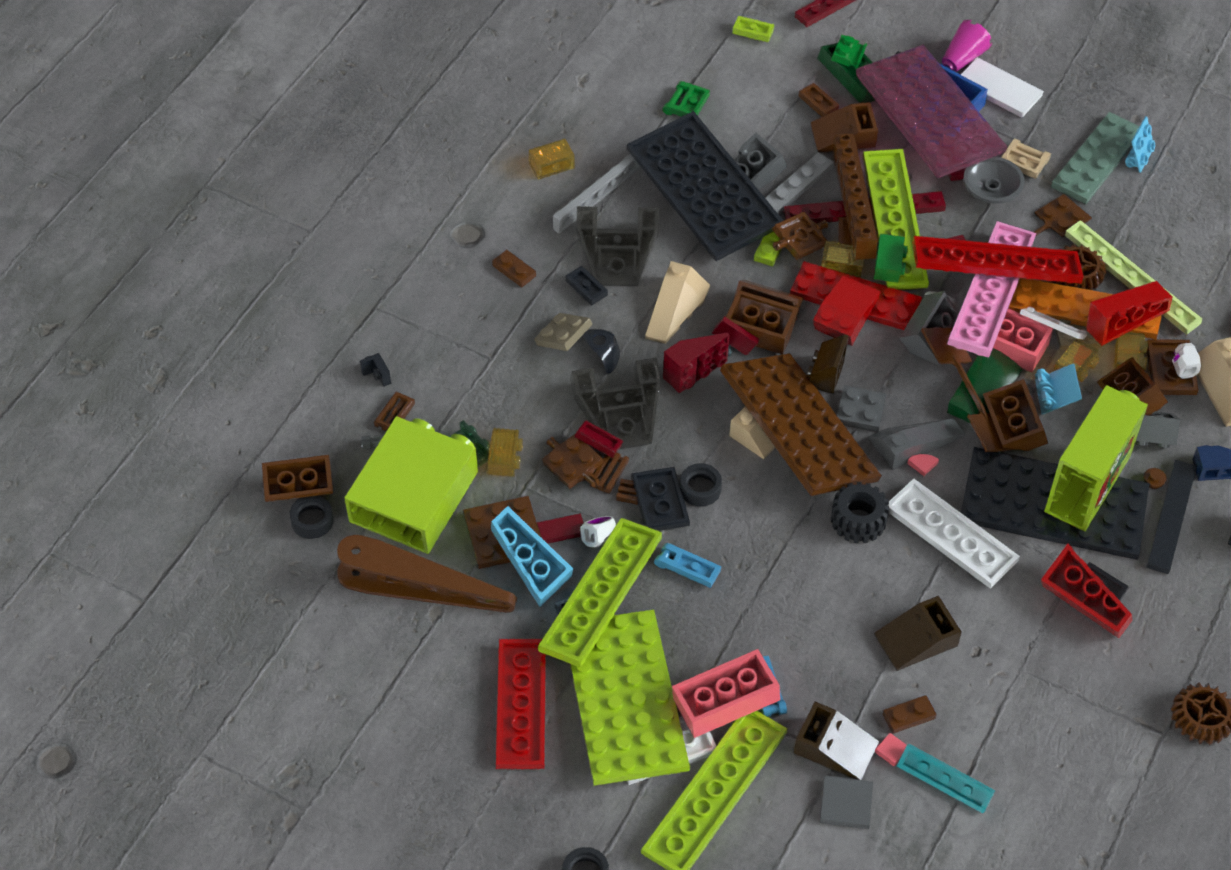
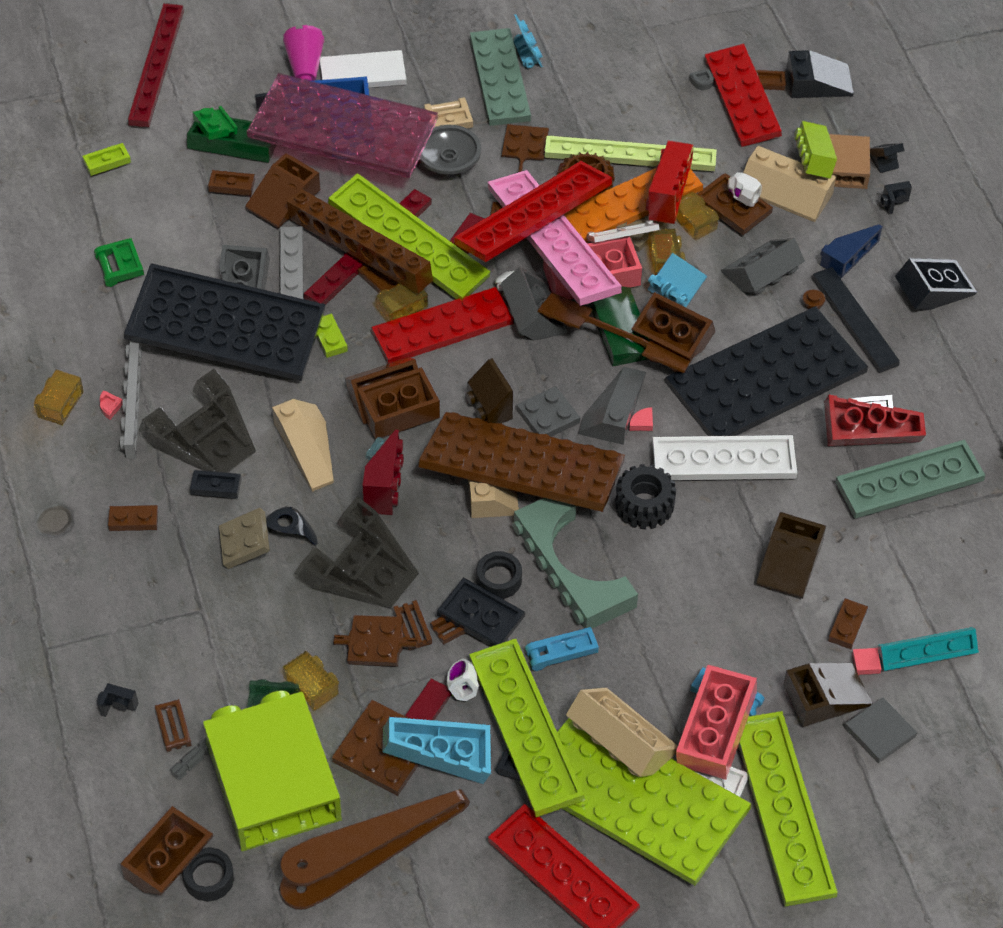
camera: 45 degrees left, 0 degrees up
(578, 186) = (109, 404): none -> coral tile
(598, 439) = (379, 603): dark red tile -> none
(656, 644) = (621, 731): none -> tan slope
(738, 337) = (384, 427): dark red tile -> none
(742, 550) = (589, 600): none -> sand green arch
(800, 235) = (348, 307): reddish brown plate -> none
(846, 309) = (454, 341): red slope -> none
(889, 258) = (447, 273): green brick -> none
(1077, 656) = (910, 478): none -> sand green plate
(1095, 457) = (782, 311): lime brick -> none
(1133, 378) = (734, 239): reddish brown slope -> none

